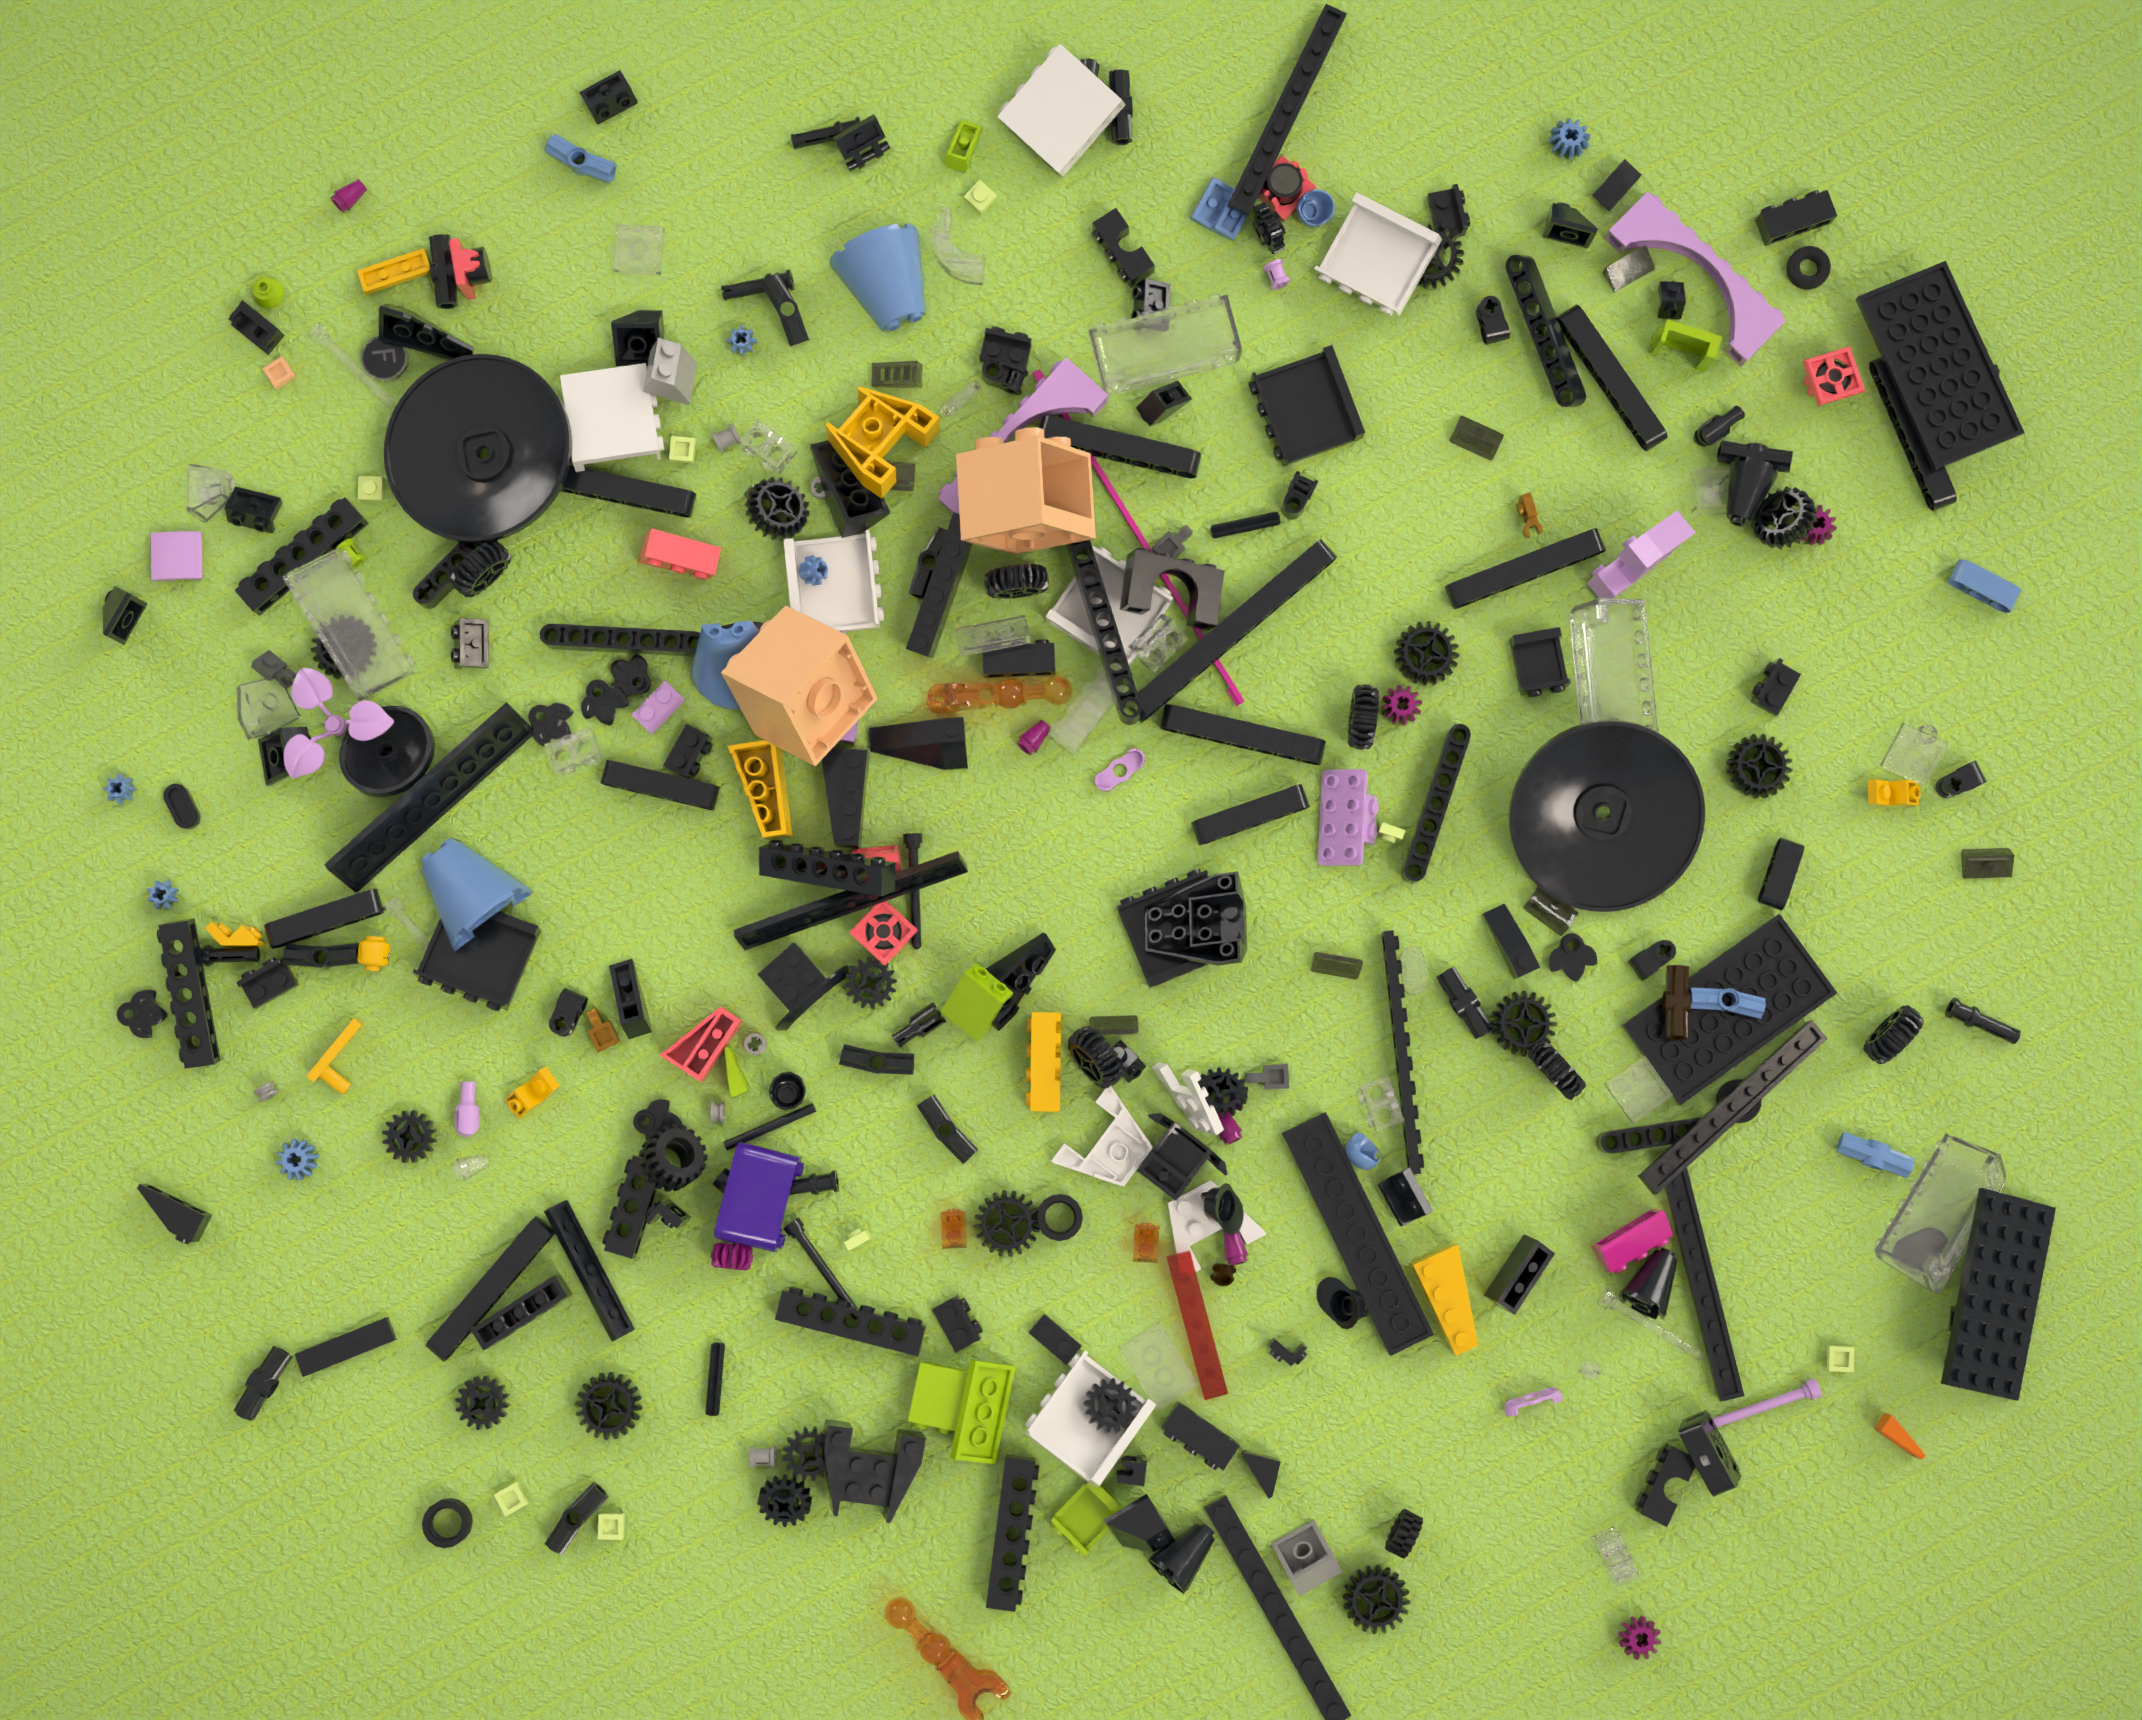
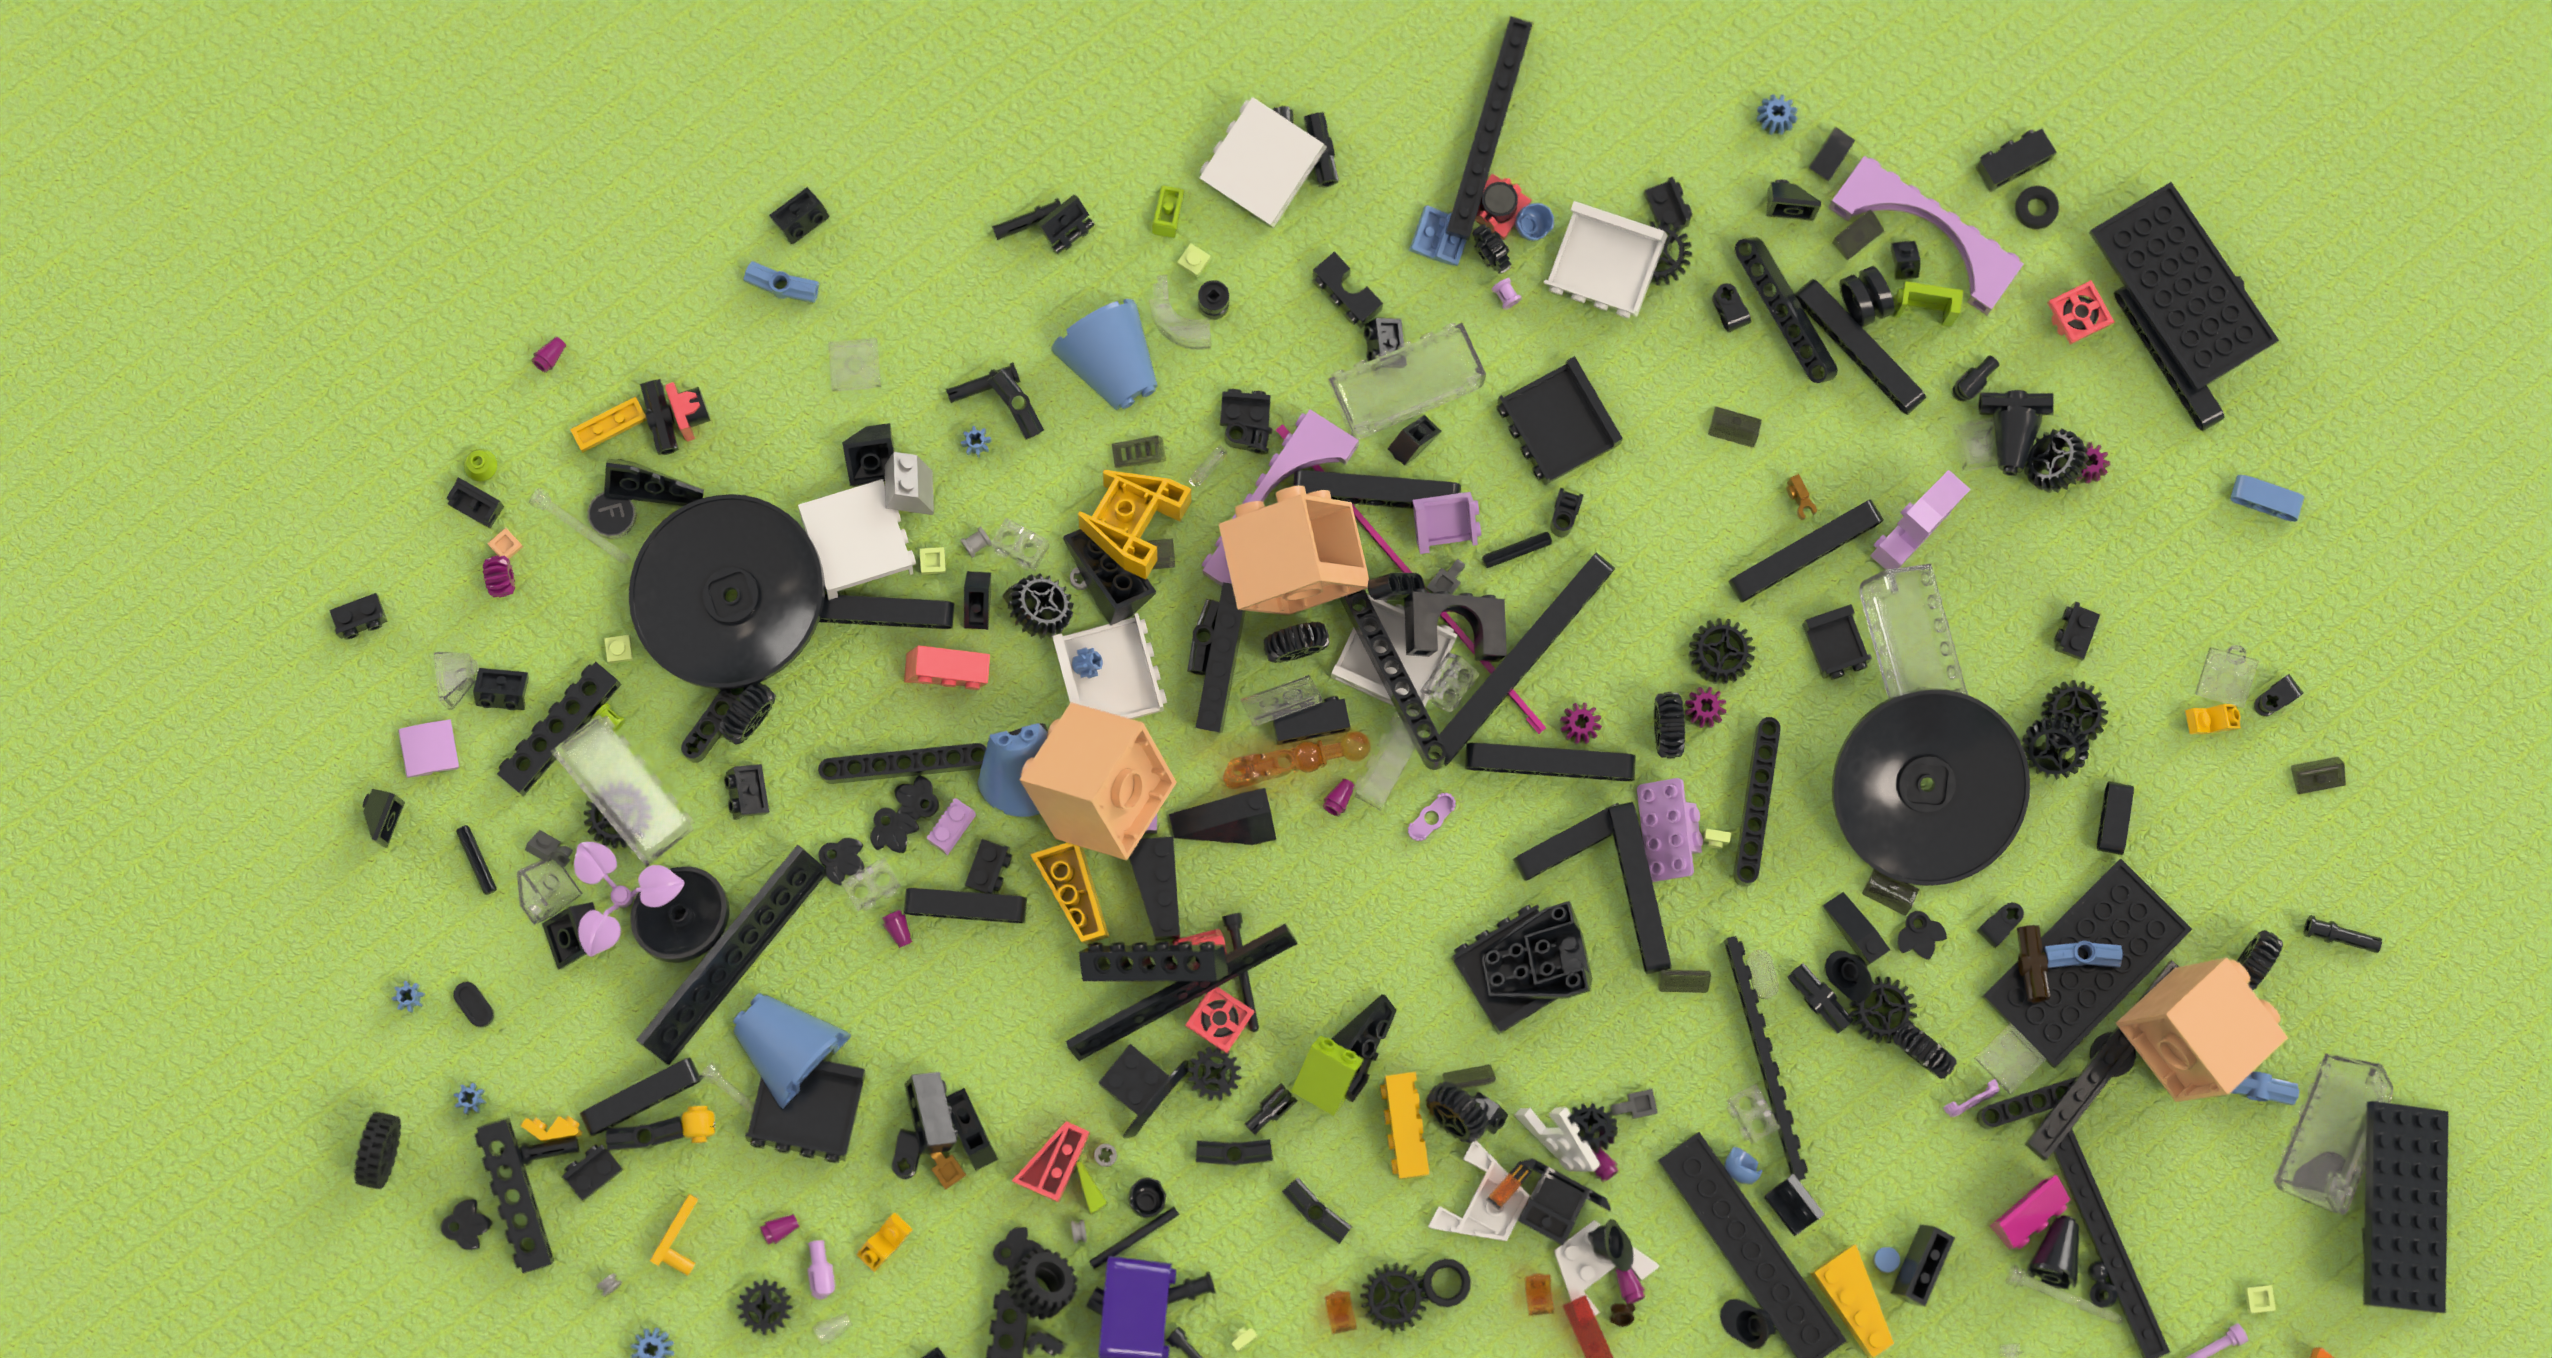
camera: 15 degrees left, 5 degrees down
(65, 931) = (377, 1150): none -> black wheel
(130, 419) = (358, 616): none -> black bracket
(205, 669) = (476, 860): none -> black axle
(266, 401) = (499, 576): none -> magenta gear
(434, 1064) = (778, 1228): none -> magenta cone
(592, 796) = (897, 928): none -> magenta cone
(594, 978) = (930, 1113): none -> brick
(718, 493) = (977, 600): none -> black slope
(992, 237) = (1213, 299): none -> black wheel
(1119, 541) = (1394, 585): none -> black beam
(1134, 1135) = (1509, 1185): none -> clear orange piece
(1180, 485) = (1445, 520): none -> lavender panel
(1286, 706) = (1573, 716): none -> magenta gear
(1307, 869) = (1639, 887): none -> black beam
(1485, 1262) = (1886, 1259): none -> medium blue tile
(1496, 985) = (1849, 975): none -> black piece
(1575, 1130) = (1955, 1110): none -> lavender piece
(1627, 329) = (1867, 296): none -> black wheel
(1688, 1307) = (2098, 1272): none -> black plate
(1751, 790) = (2057, 763): none -> black gear
(1832, 1093) = (2203, 1029): none -> light nougat piece

